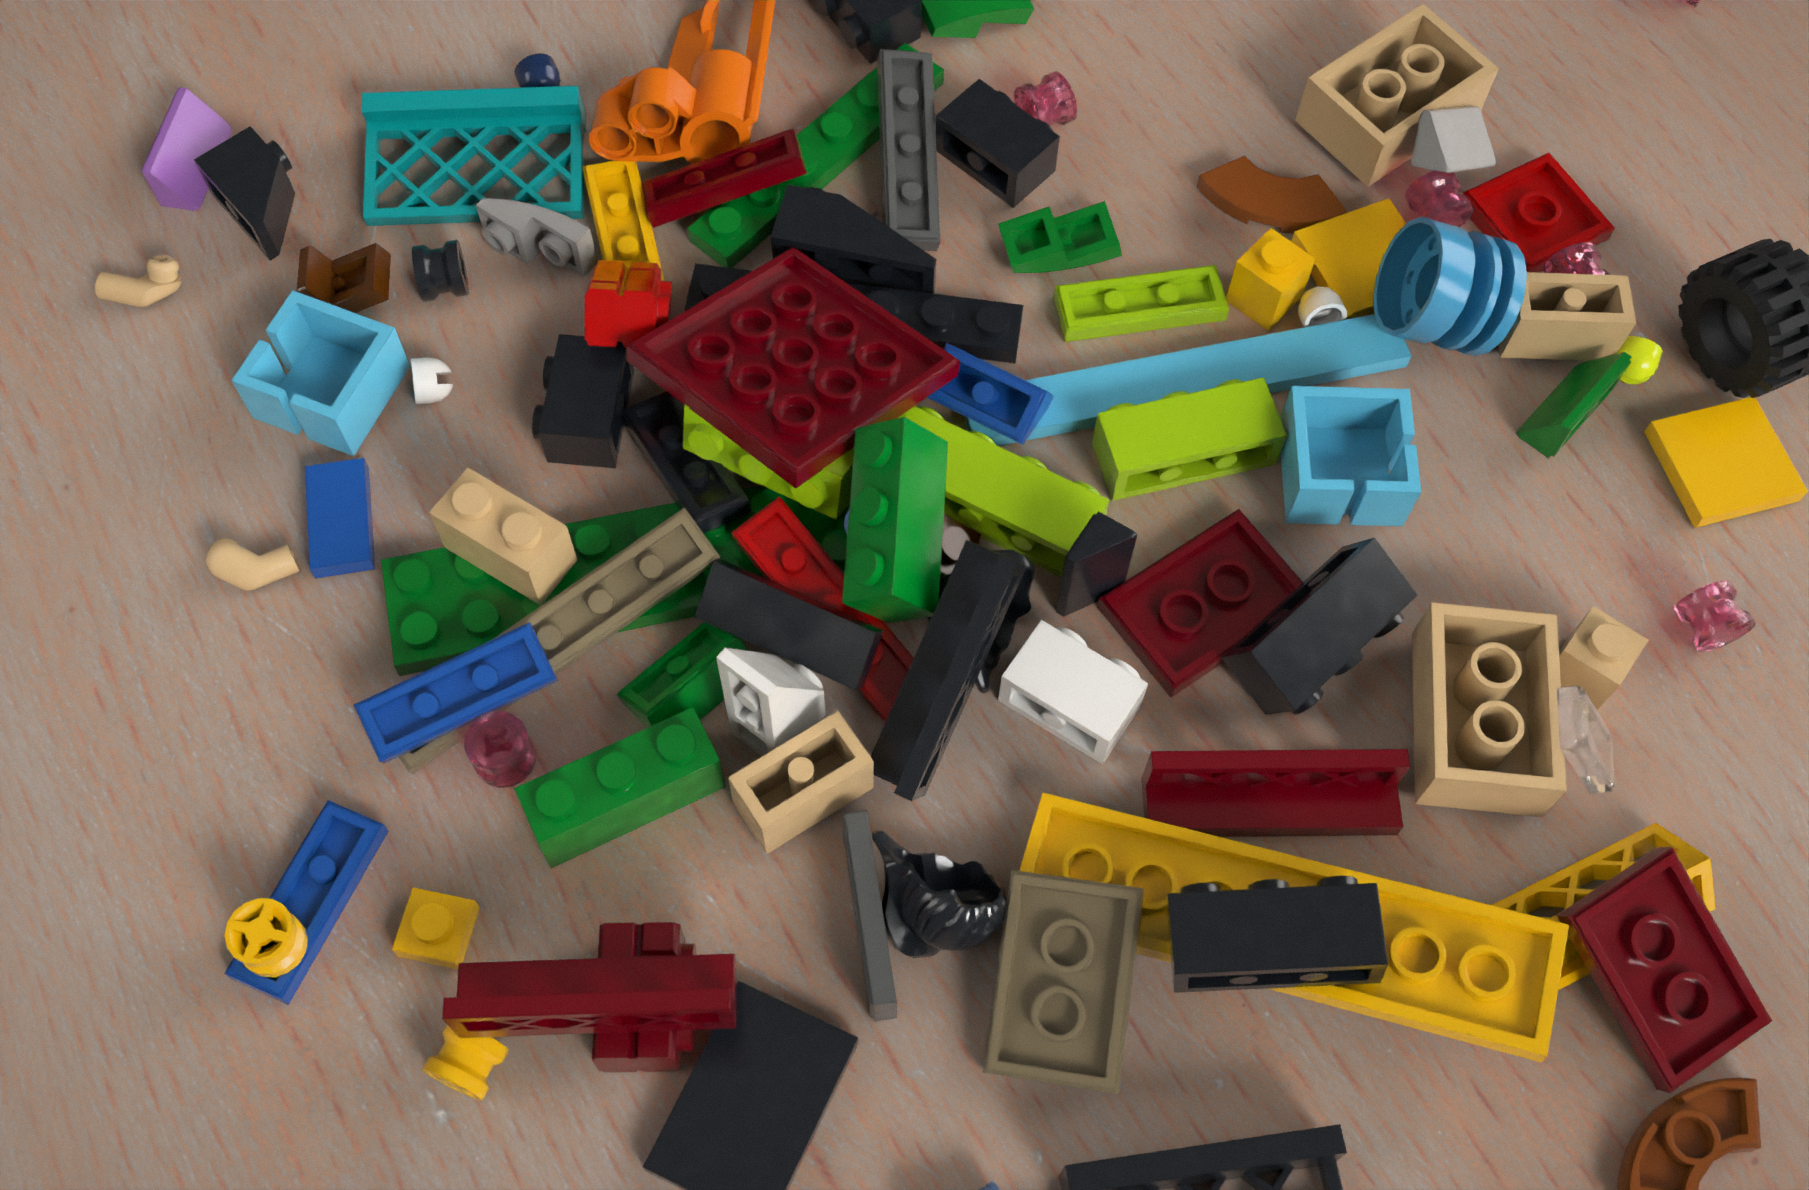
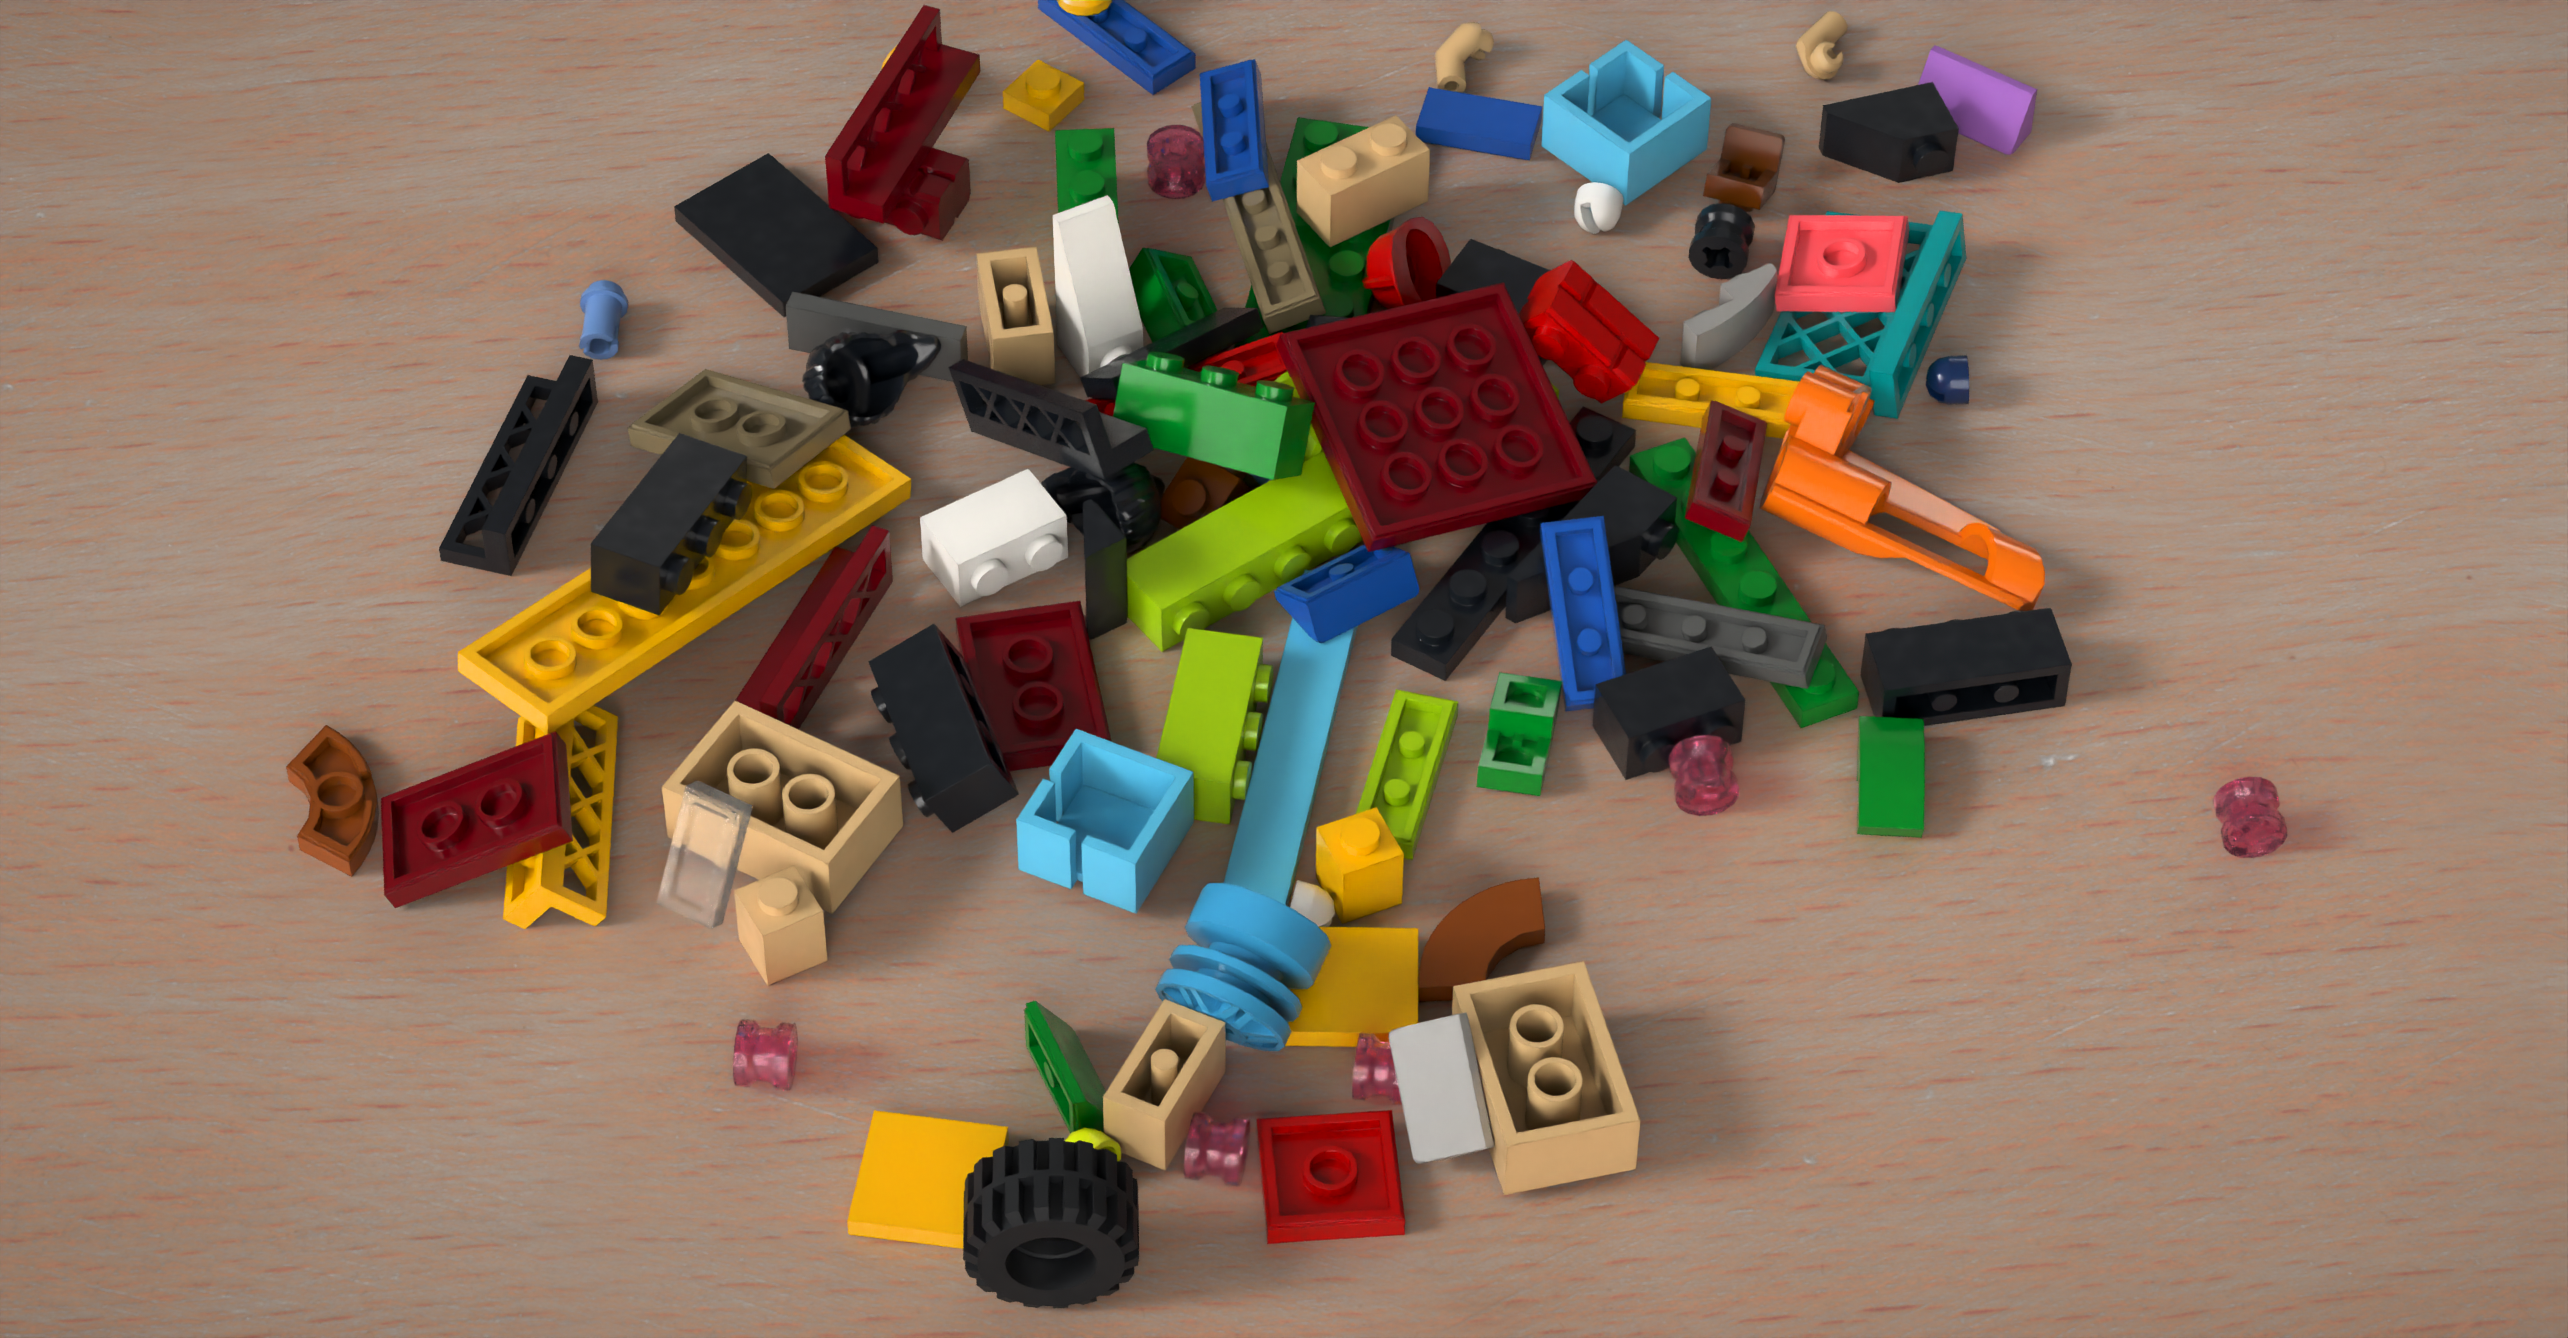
camera: 115 degrees right, 15 degrees down
(436, 174) = (1842, 263): none -> coral tile
(594, 486) = (1406, 263): none -> red piece
(935, 212) = (1582, 607): none -> blue tile

